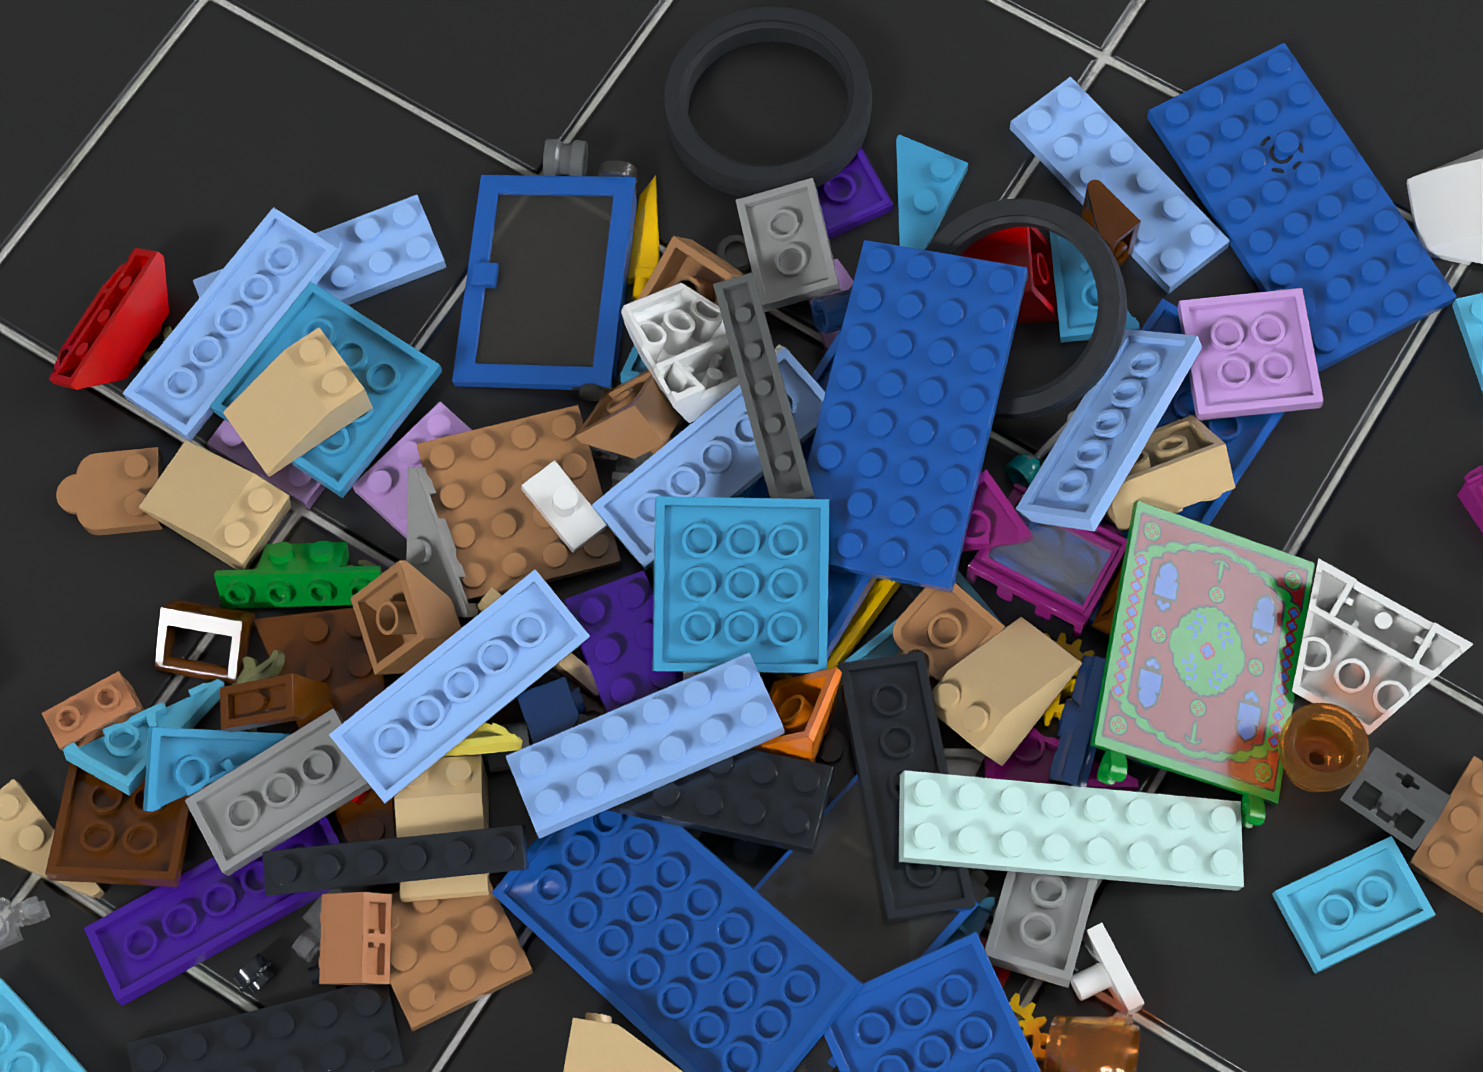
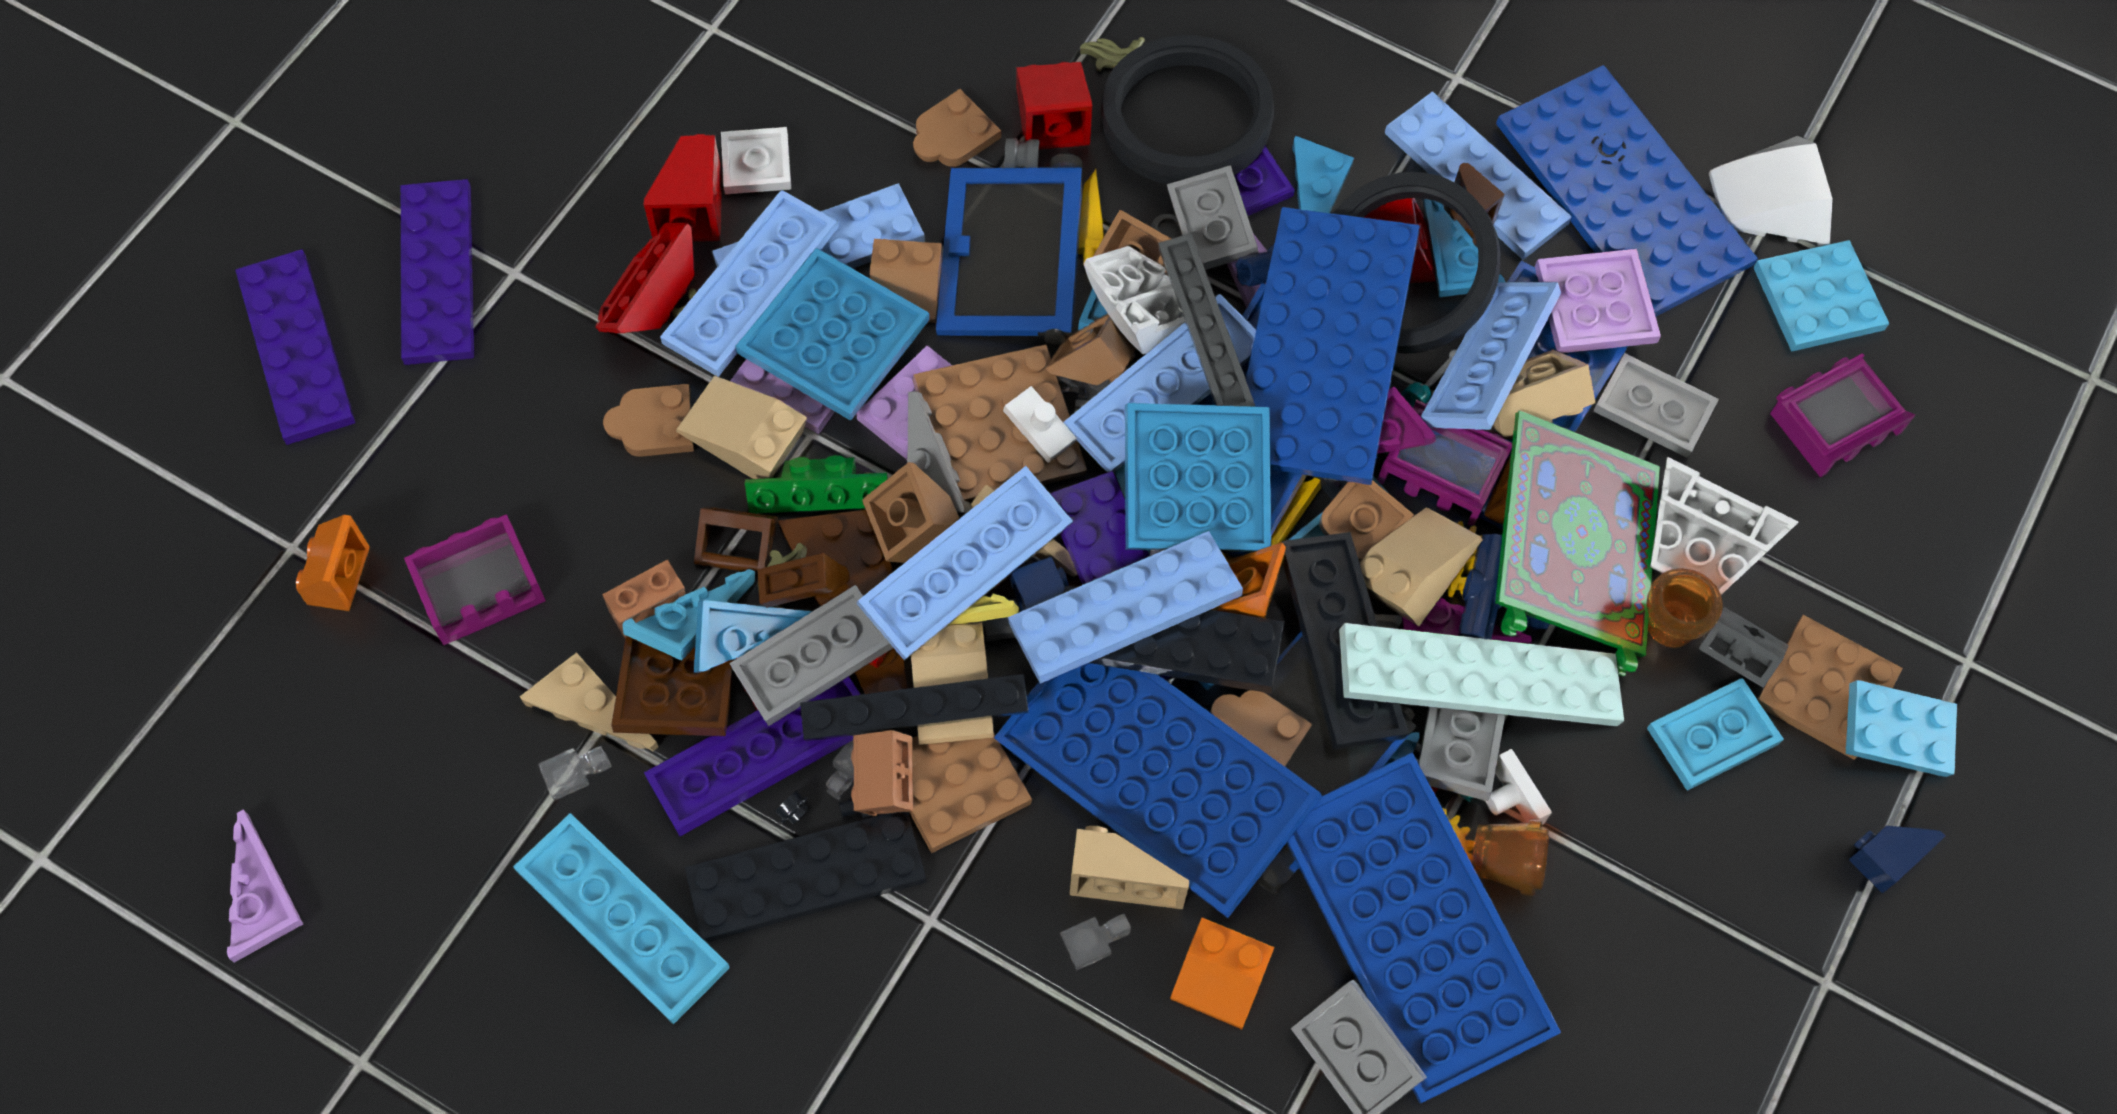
camera: 10 degrees left, 5 degrees down
(165, 206) = (688, 189): none -> red slope
(249, 165) = (755, 160): none -> white plate
(297, 403) = (812, 340): tan slope -> none
(421, 312) = (909, 271): none -> medium nougat slope
(487, 127) = (954, 131): none -> medium nougat plate
(606, 95) = (1054, 104): none -> red slope
(679, 24) = (1107, 52): none -> olive piece
(803, 890) = (1263, 722): none -> medium nougat plate
(1315, 485) = (1656, 405): none -> light grey plate

